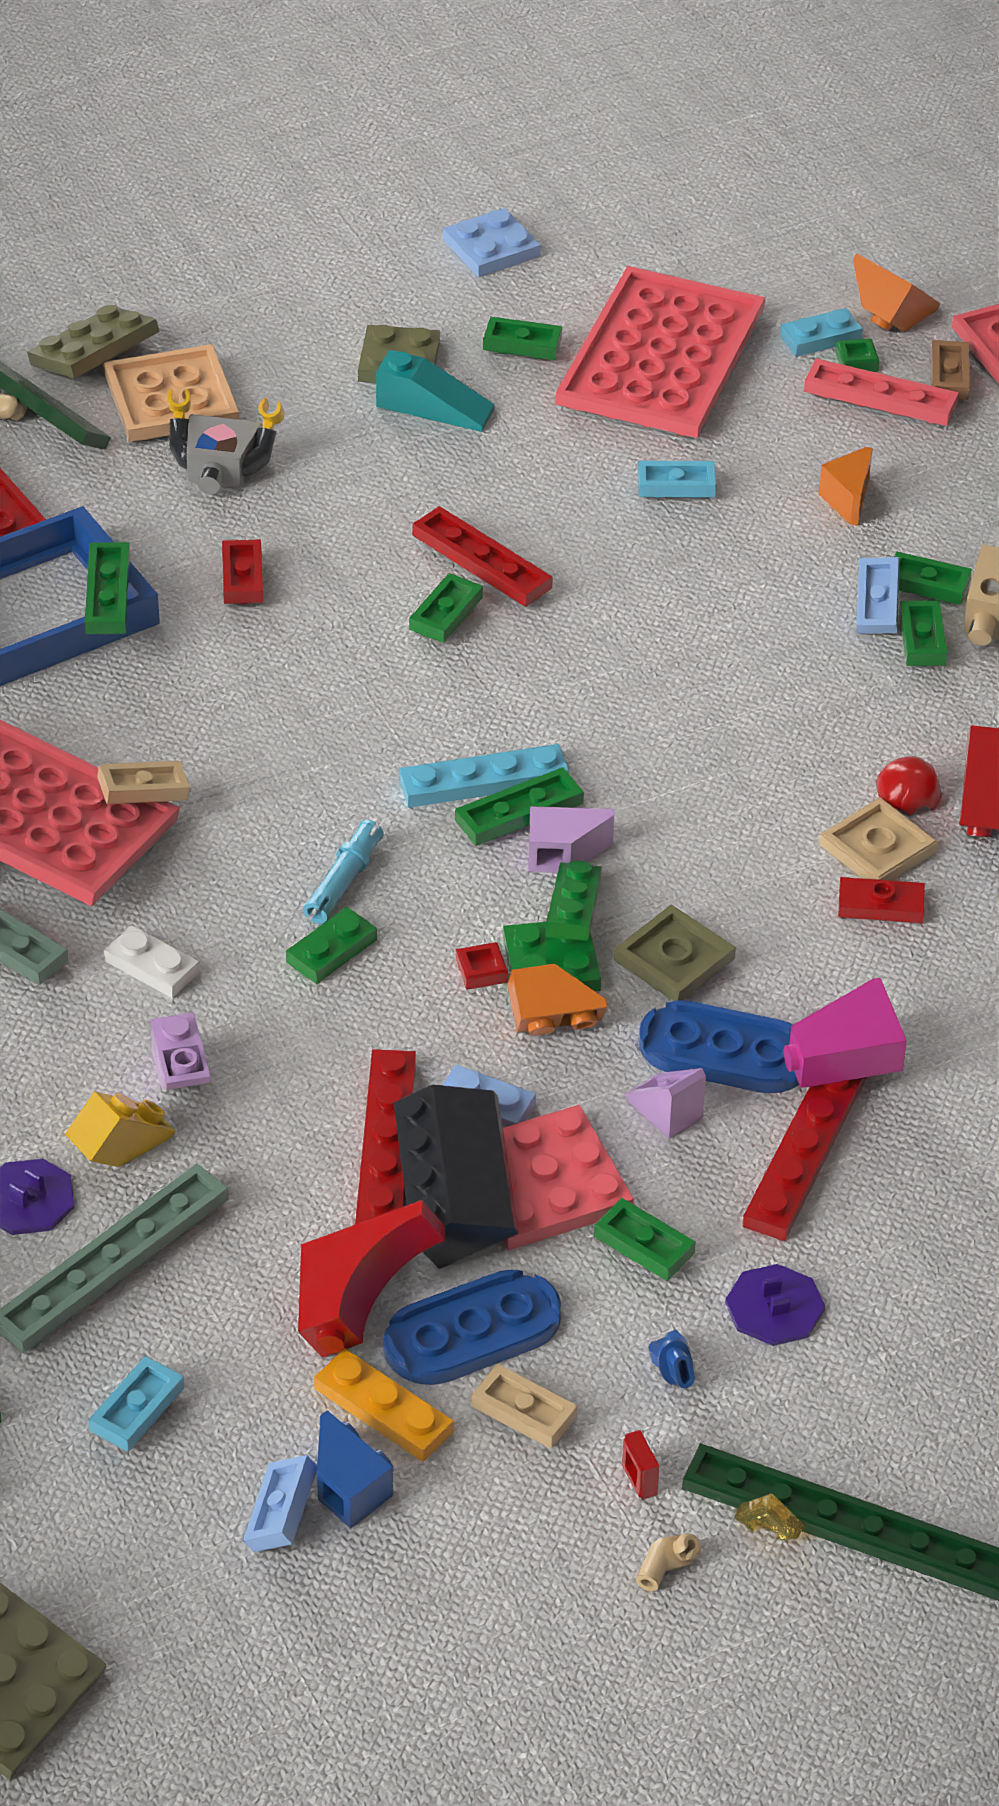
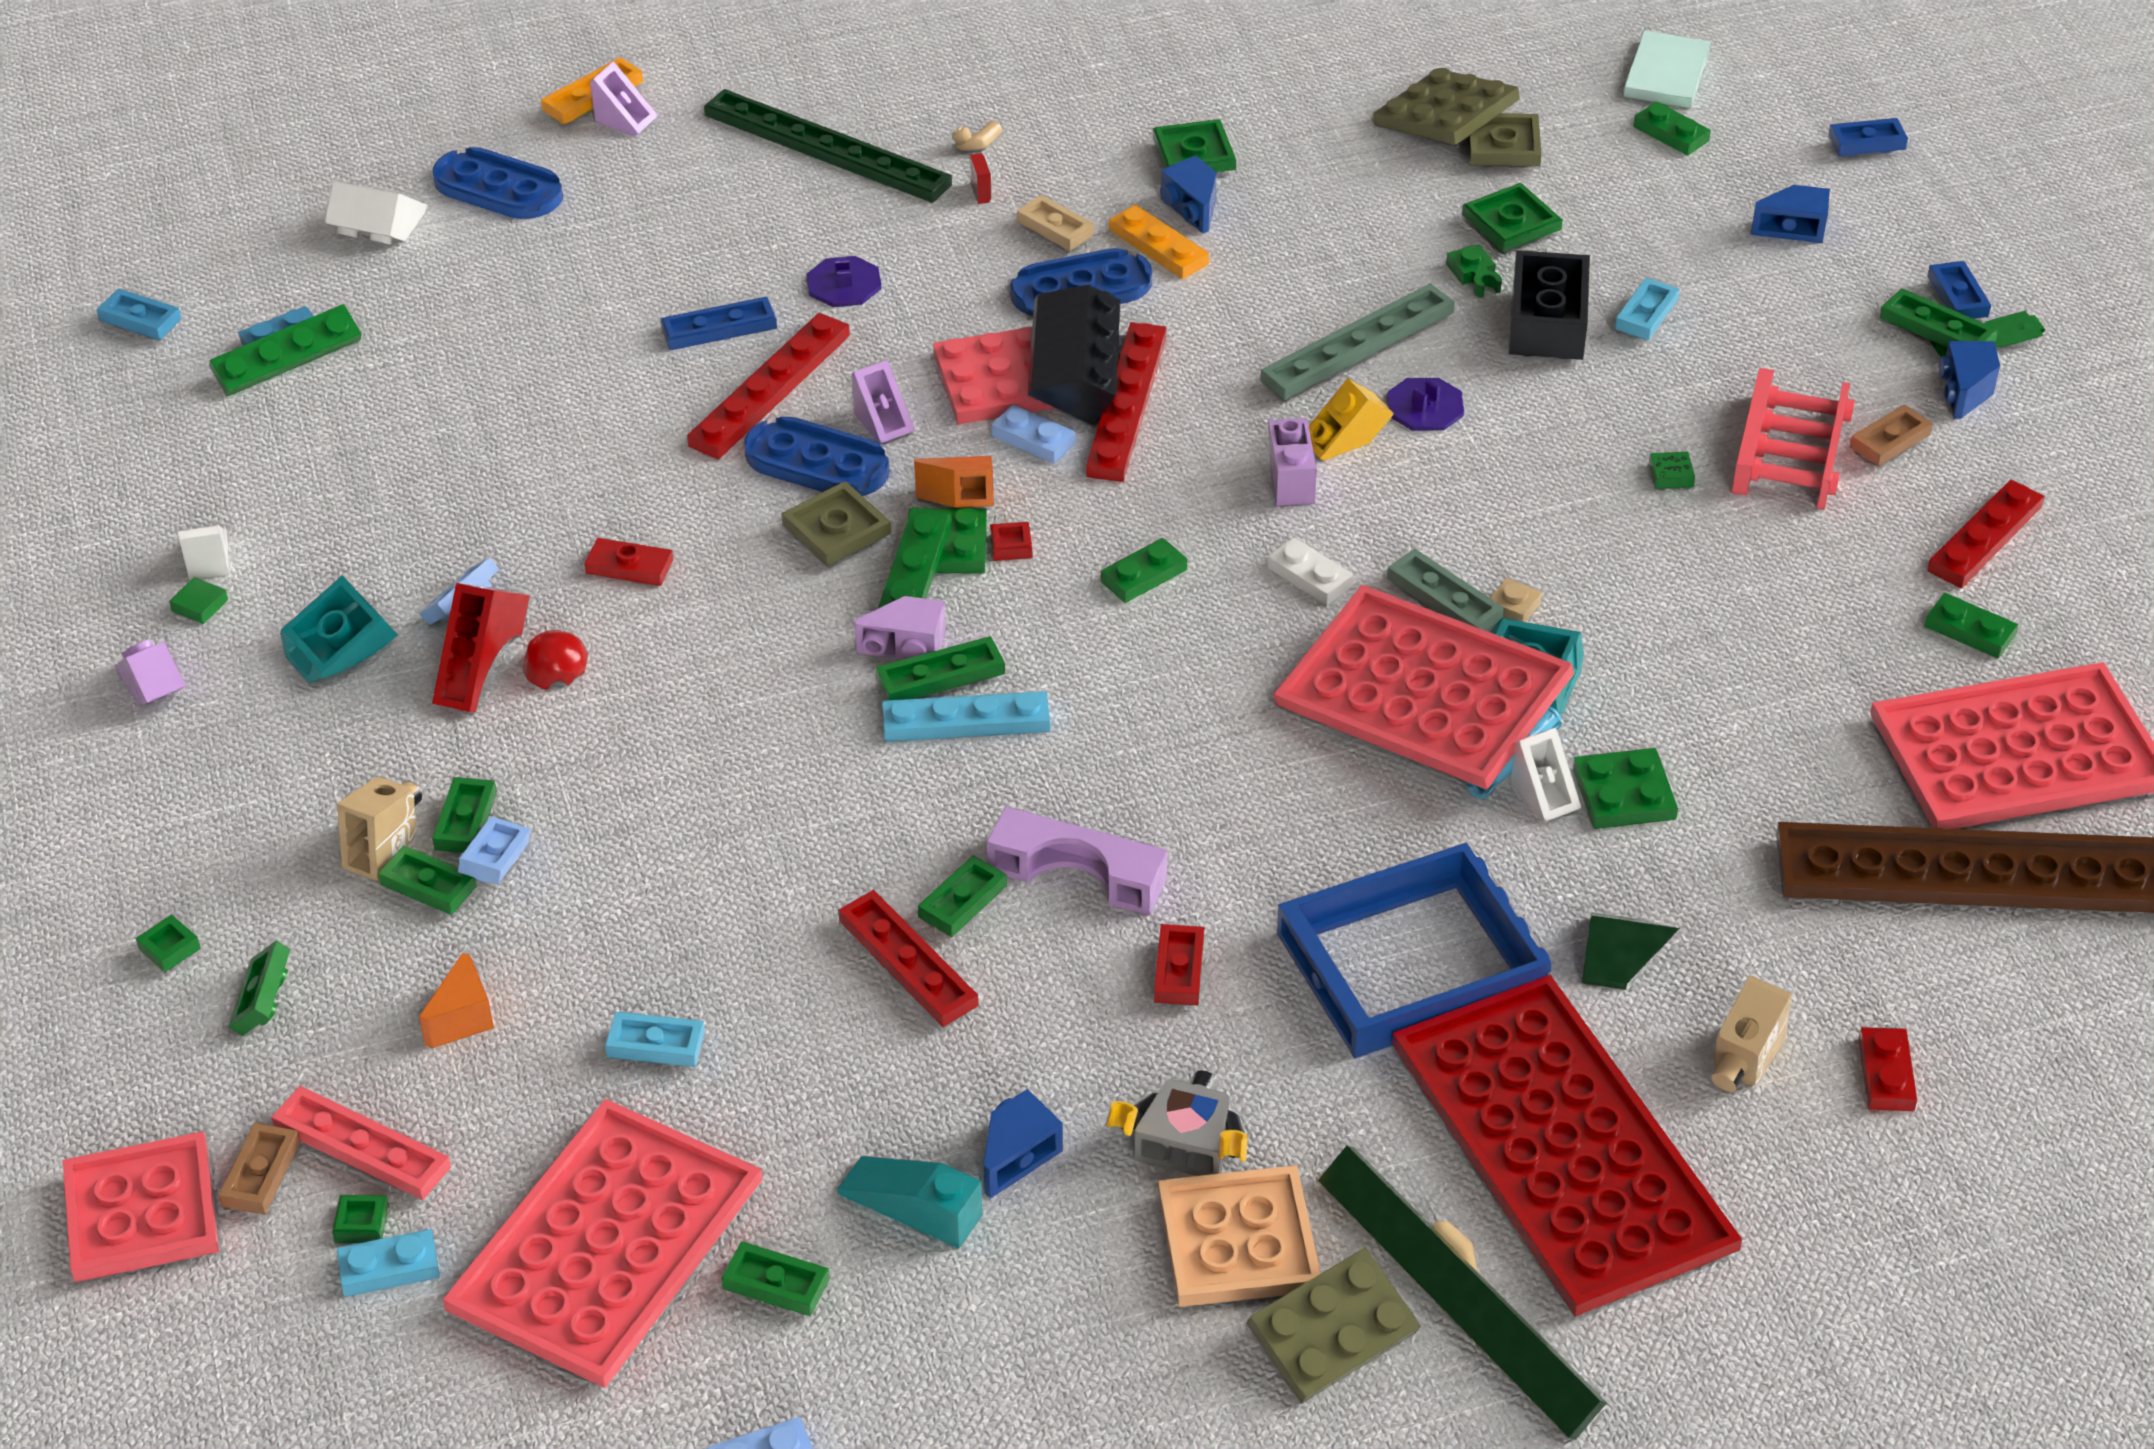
camera: 170 degrees left, 0 degrees up
(107, 588) = (1333, 891): green plate -> none
(136, 1403) = (1343, 248): medium azure plate -> none
(143, 782) = (1308, 690): tan plate -> none
(280, 1503) = (1244, 179): light blue plate -> none
(350, 1269) = (1168, 291): red arch -> none
(351, 859) = (1113, 634): medium azure pin -> none
(353, 432) = (1019, 1140): none -> blue slope
(357, 1564) = (1200, 138): none -> green plate
(382, 338) = (938, 1281): olive plate -> none
(390, 650) = (1031, 844): none -> lavender arch
(644, 1239) = (932, 315): green plate -> none
(673, 1359) = (935, 244): blue piece -> none
(770, 1515) = (900, 144): clear yellow tile -> none
(847, 1039) = (719, 405): dark pink slope -> none
(878, 842) = (608, 615): tan tile -> none
(890, 297) = (270, 1280): orange slope -> none
(905, 1216) = (718, 323): none -> blue tile

